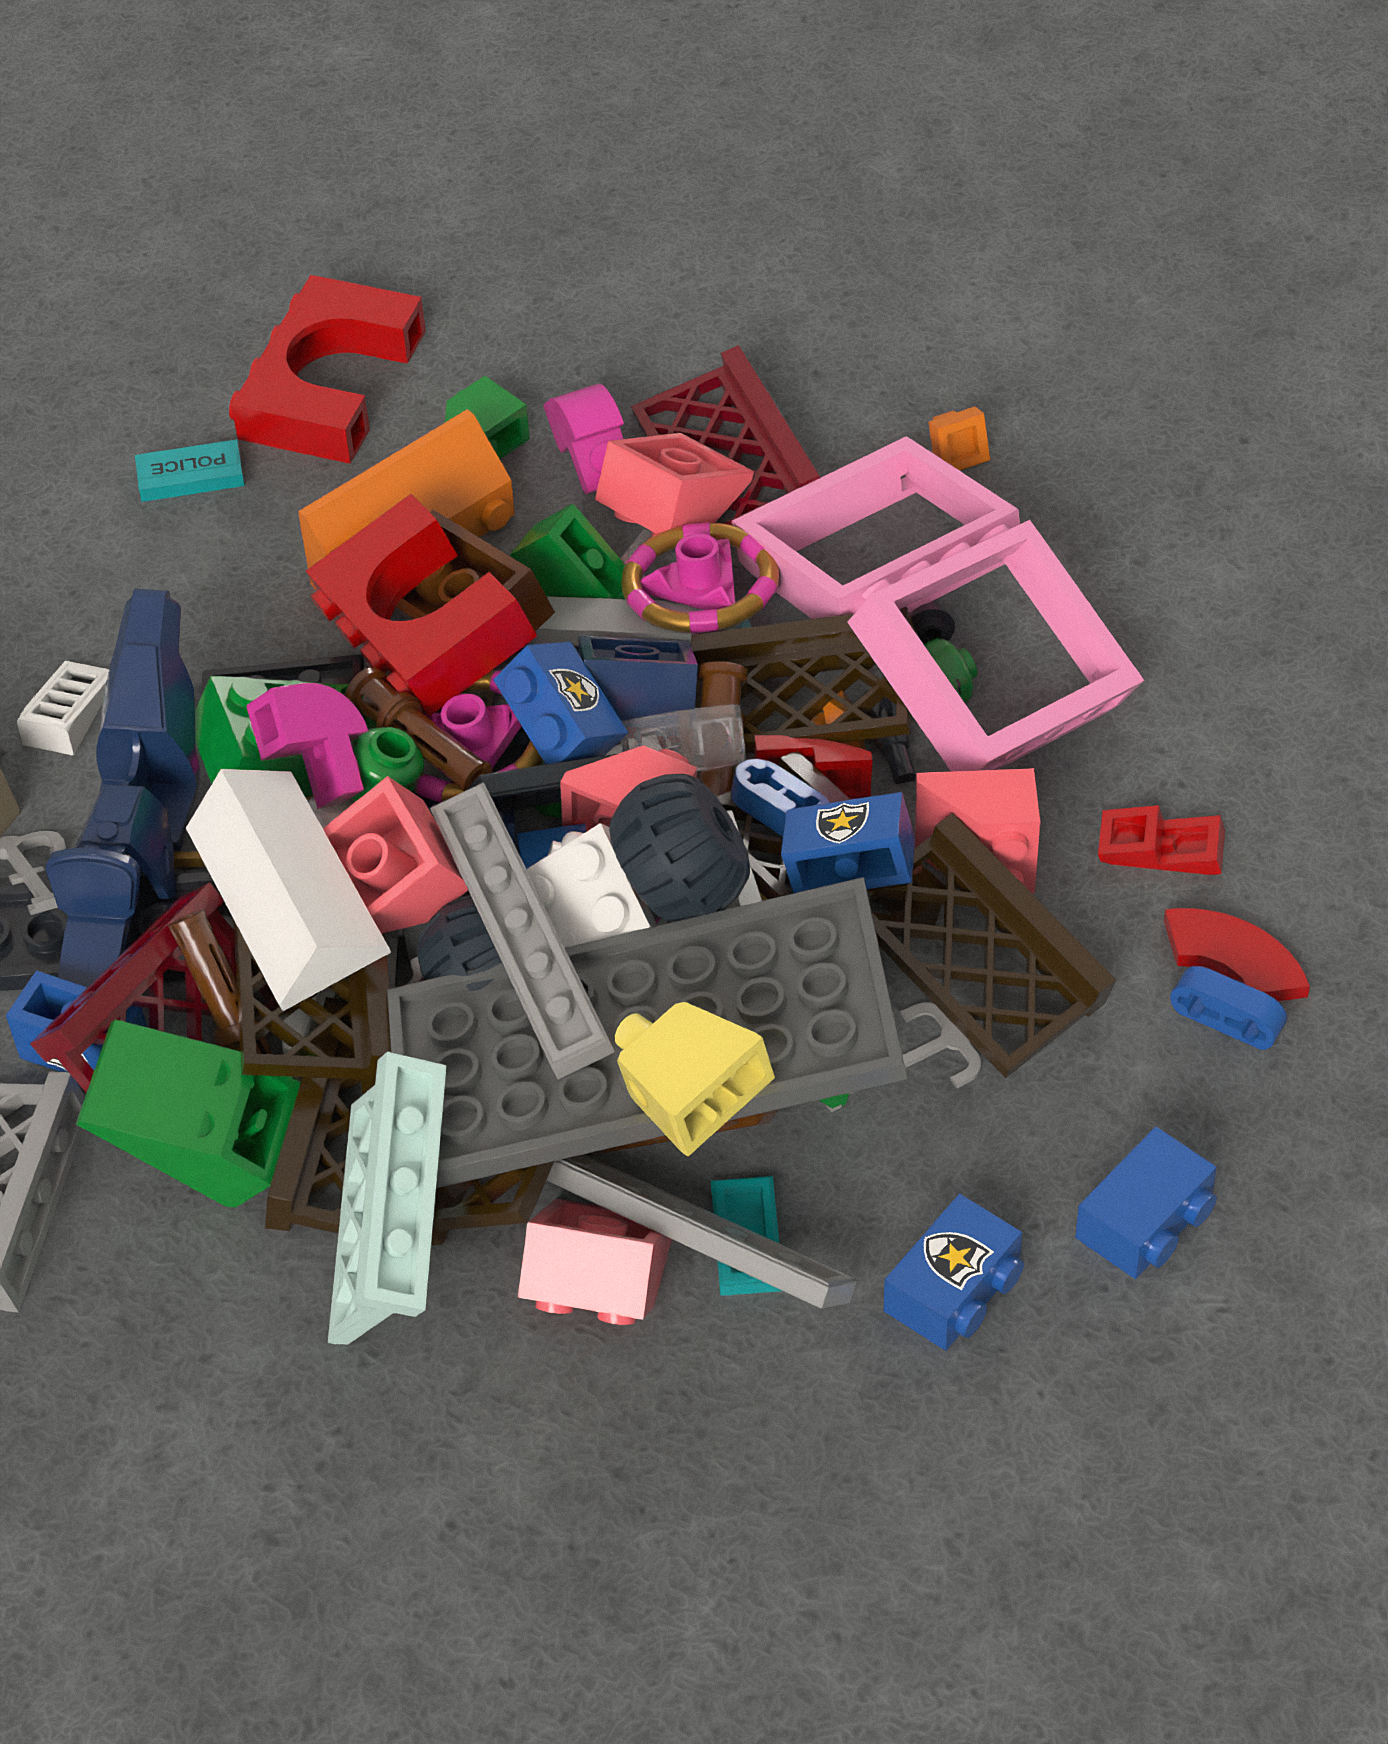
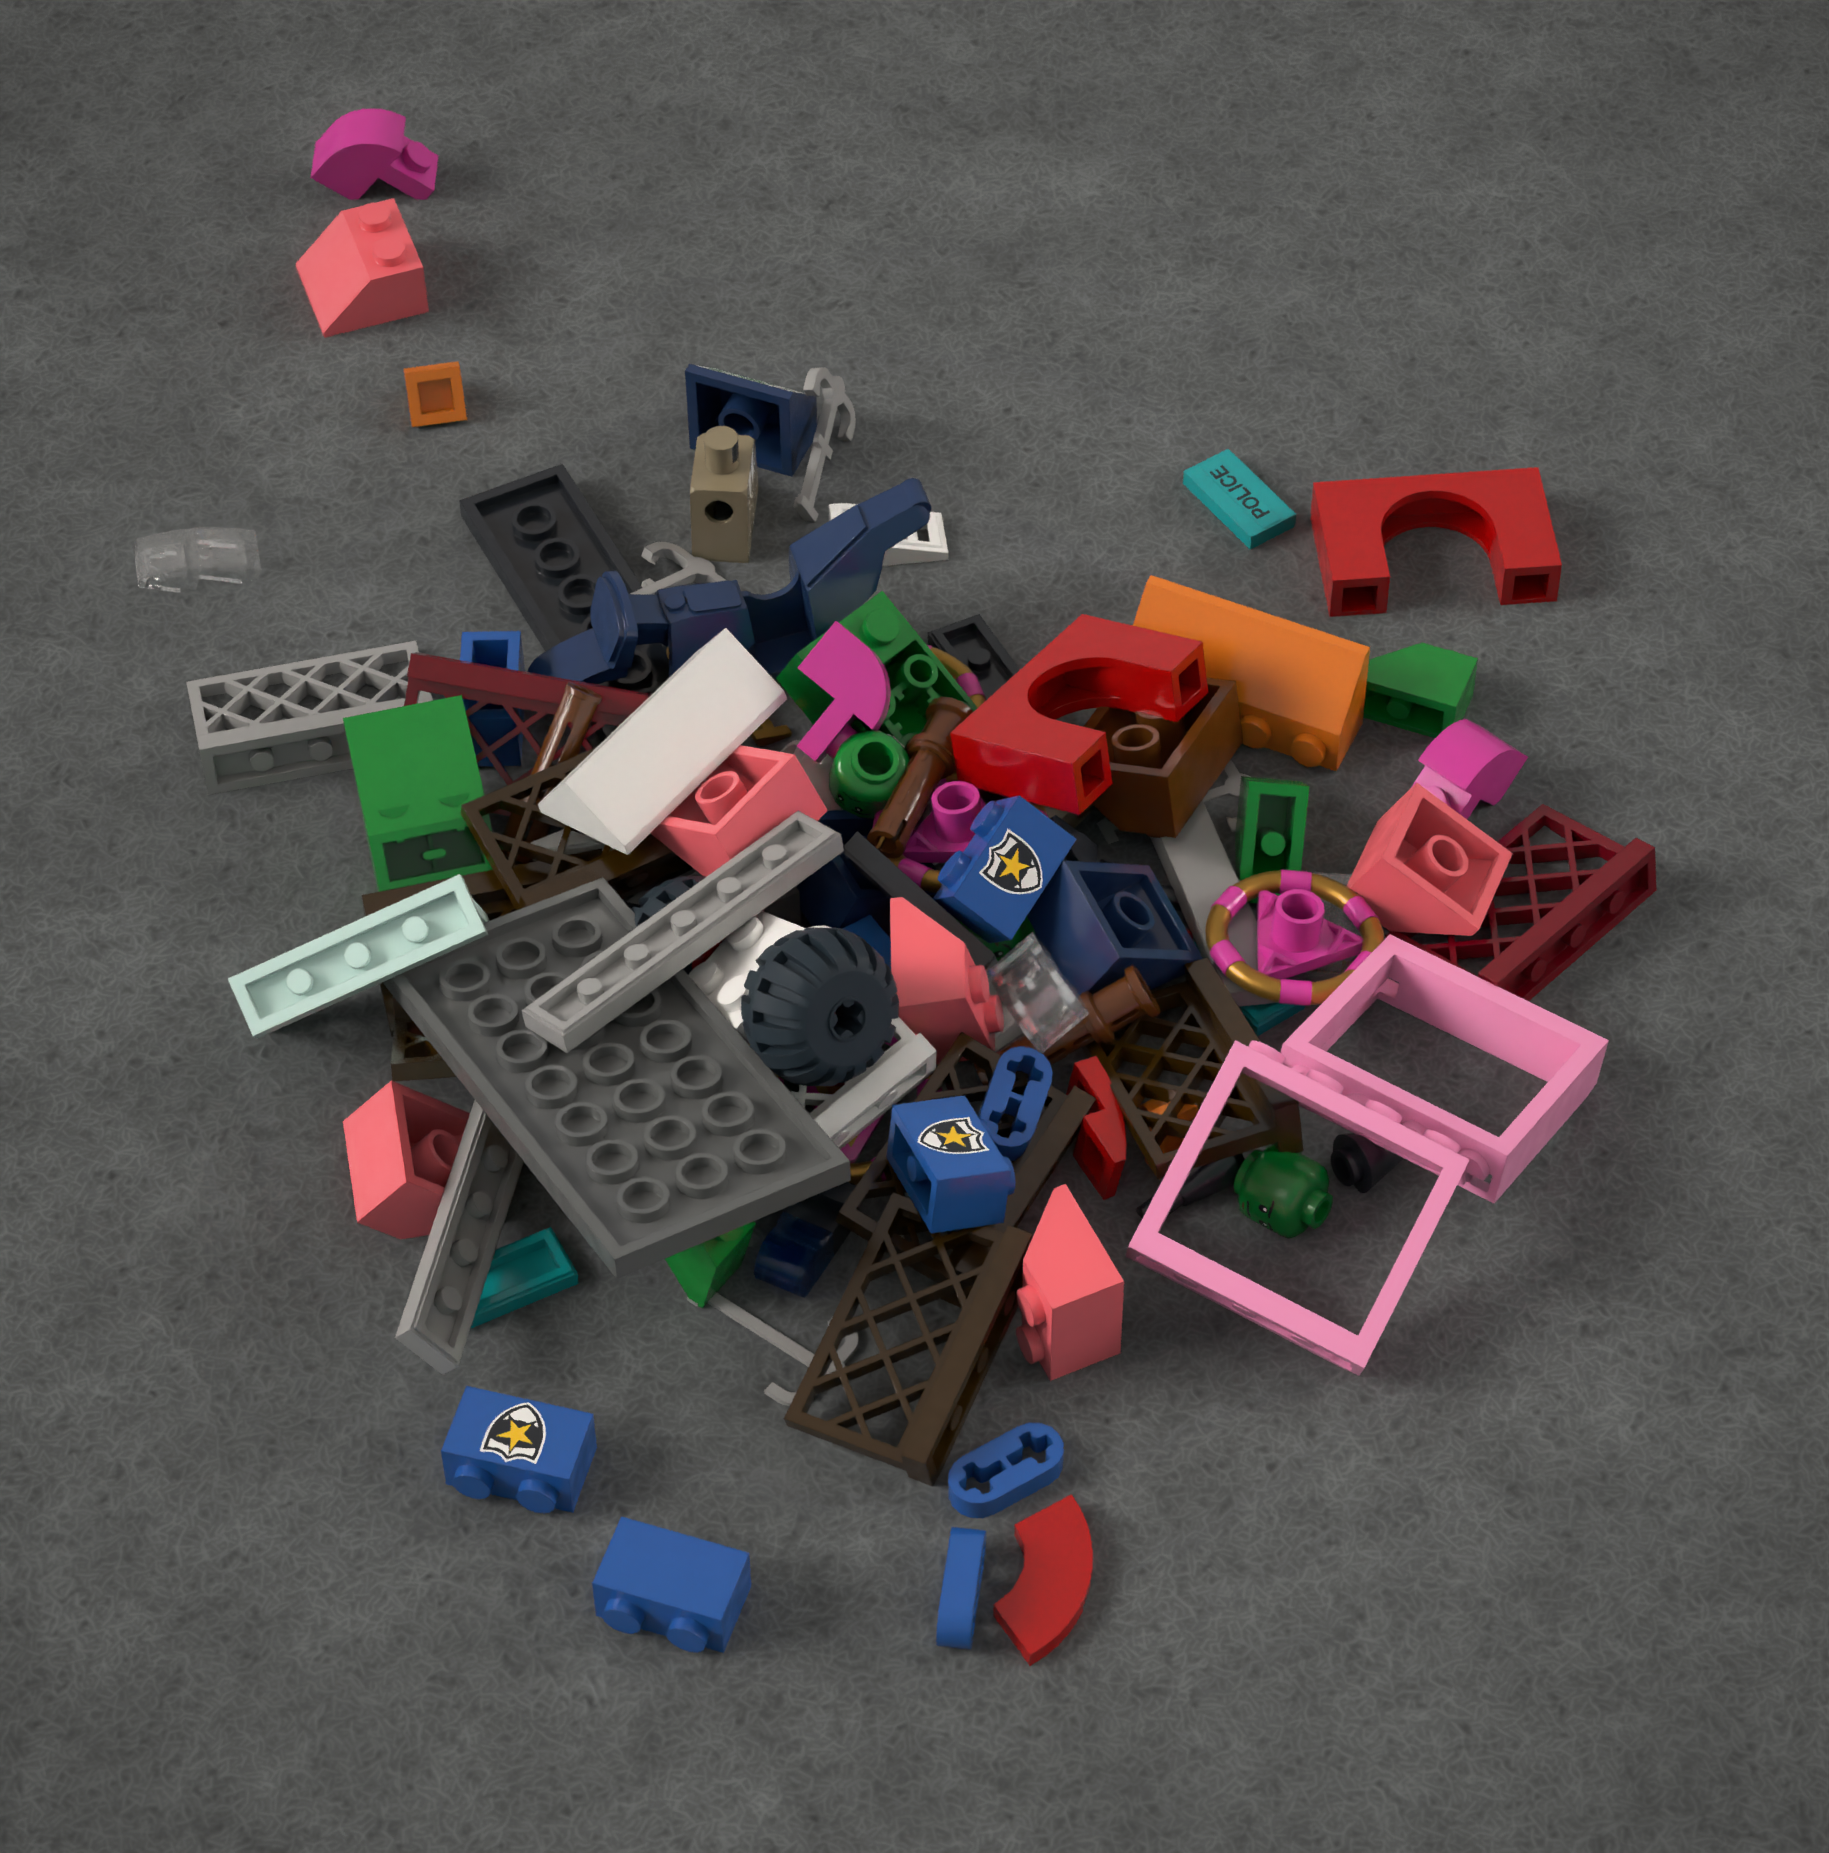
camera: 65 degrees right, 0 degrees up
(691, 1070) = (531, 1100): light yellow torso -> none
(960, 438) = (1655, 1096): orange tile -> none
(1130, 943) = (1008, 1474): none -> blue beam
(1146, 840) = (1172, 1468): red slope -> none

